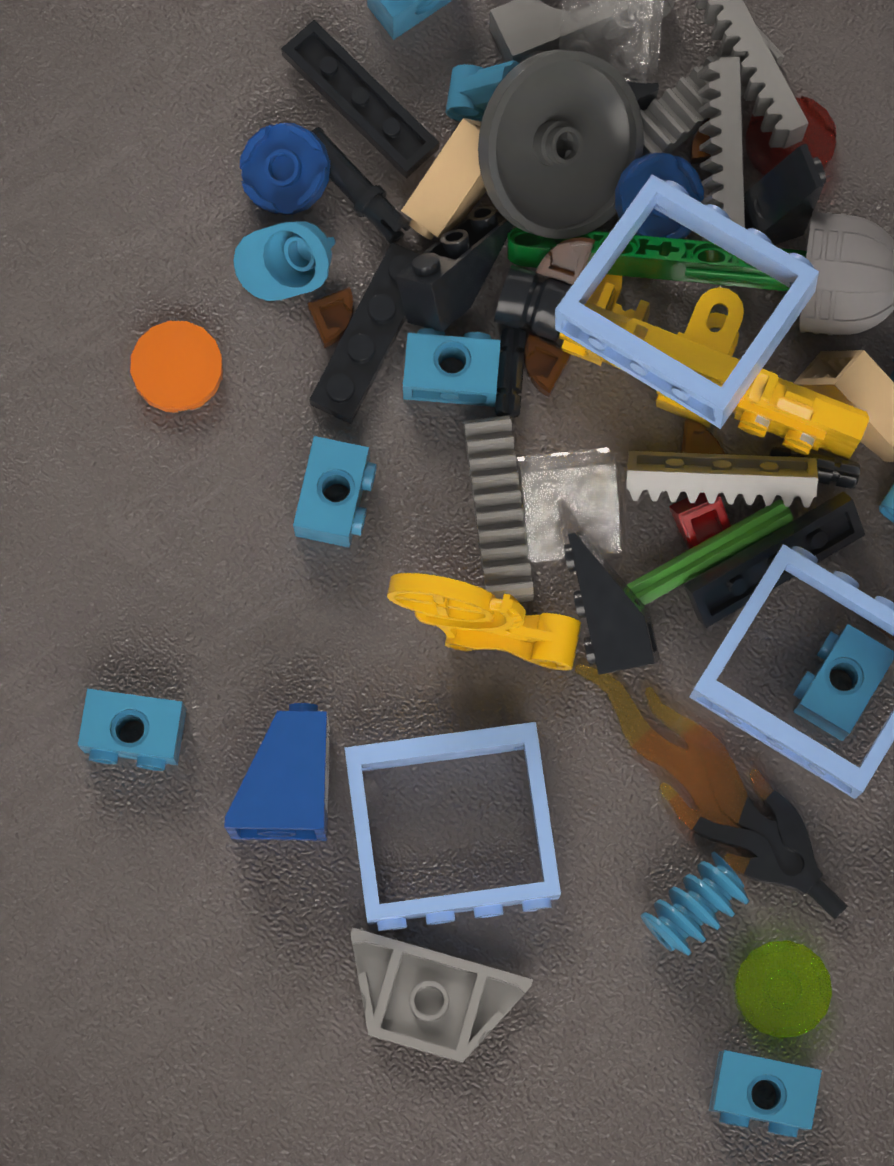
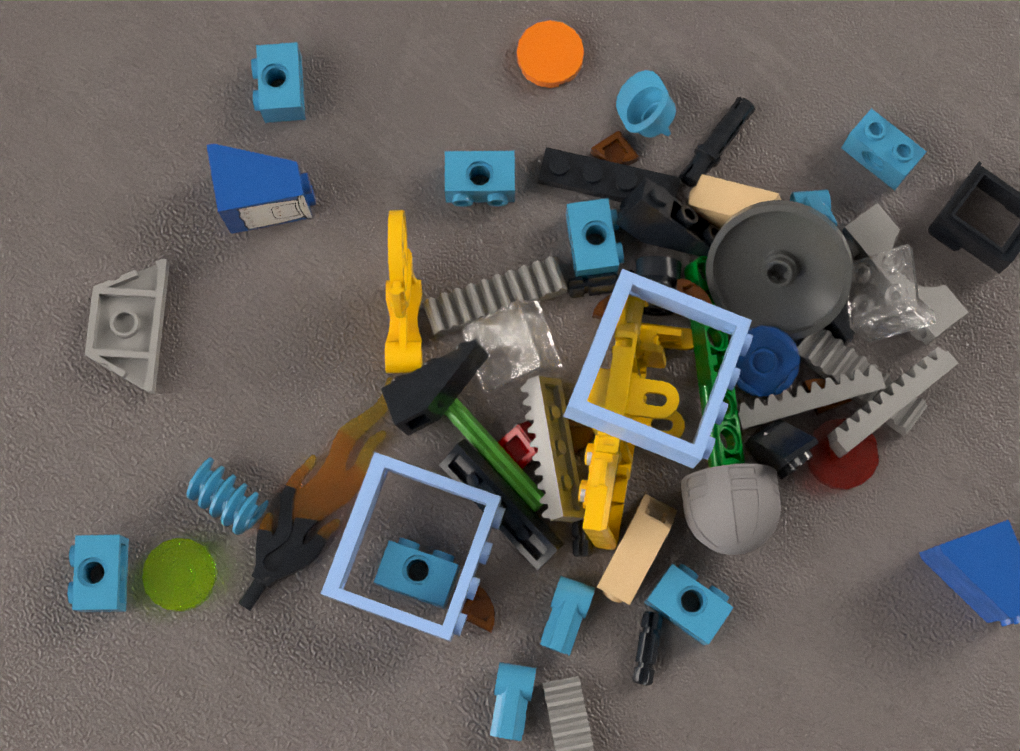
camera: 80 degrees right, 0 degrees up
(284, 168) = (716, 90): blue tile -> none
(360, 99) = (785, 130): black plate -> none
(440, 748) = (200, 347): light blue window -> none

